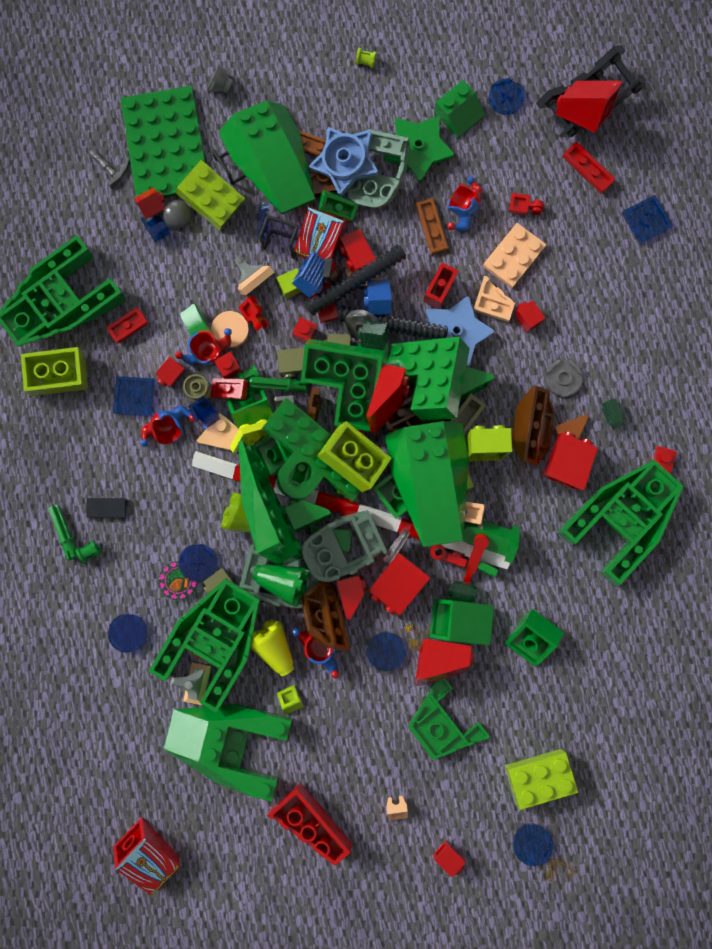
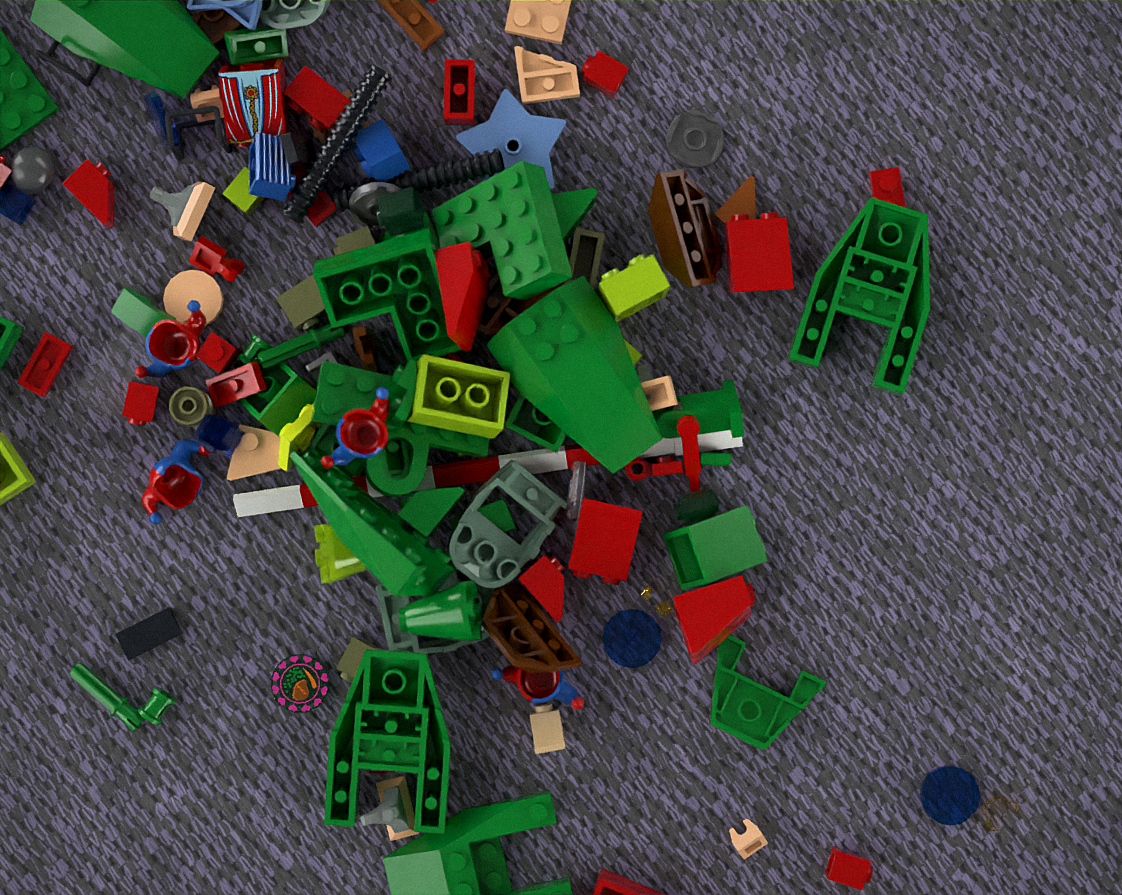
camera: 30 degrees left, 5 degrees up
(127, 633) = (267, 788): clear blue tile -> none
(134, 396) = (106, 460): clear blue tile -> none
(197, 563) = (315, 646): clear blue tile -> none
(205, 241) = (94, 190): none -> red slope
(210, 195) = (67, 120): lime brick -> none
(272, 647) = (475, 708): neon yellow cone -> none
(286, 448) = (361, 432): none -> red piece
(290, 700) = (534, 767): lime slope -> none
(294, 219) = (207, 99): none -> light nougat tile
(304, 330) = (300, 250): red brick -> none
(309, 681) = (547, 729): none -> tan slope
(324, 437) = (405, 387): none -> green slope
(534, 638) = (823, 520): green slope -> none
(541, 779) = (920, 704): lime brick -> none
(613, 413) = (787, 156): clear green brick -> none

